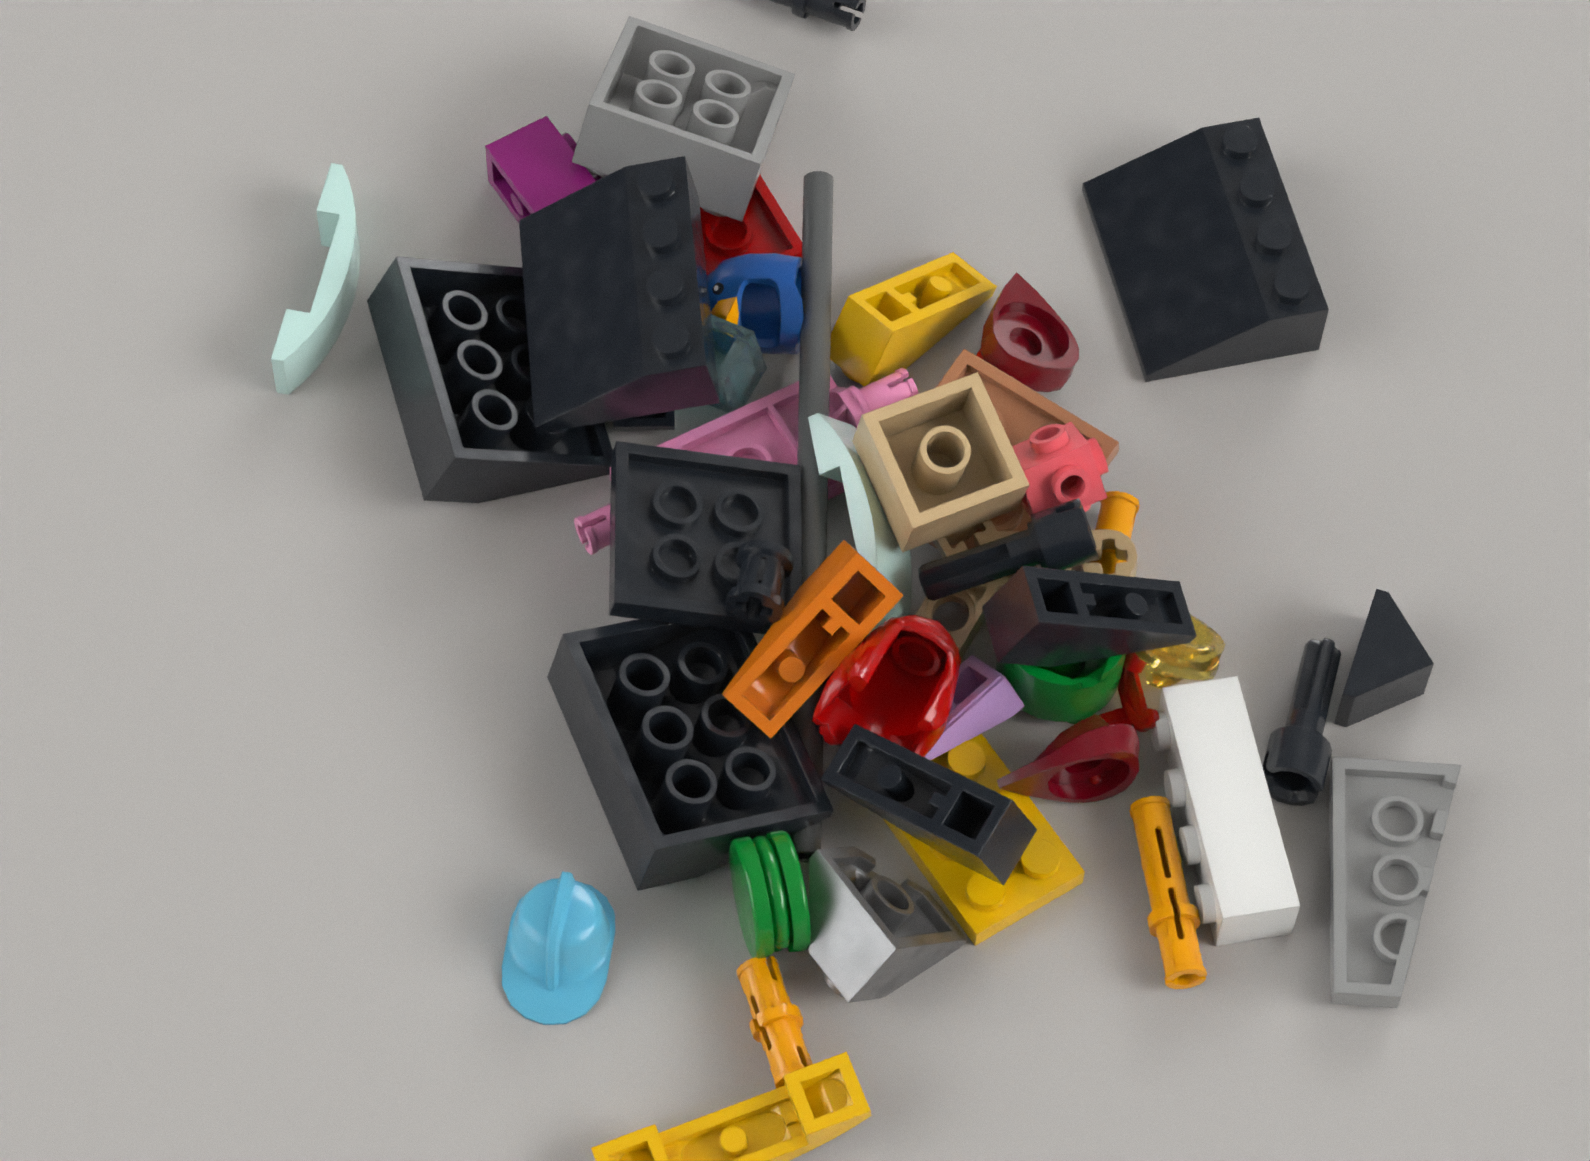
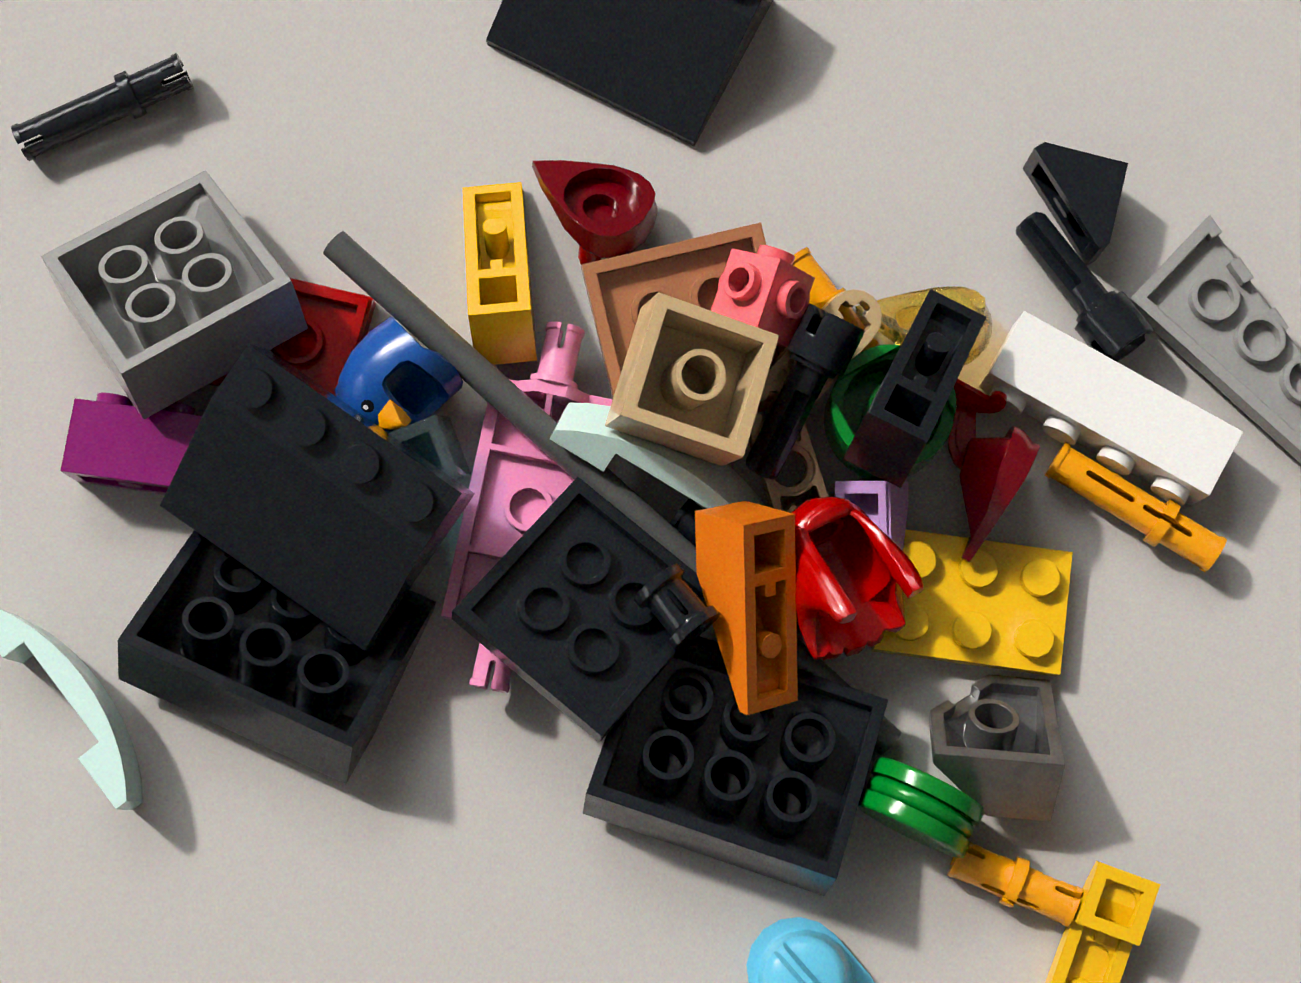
camera: 50 degrees left, 20 degrees up
(932, 803) = (953, 632): black slope -> none

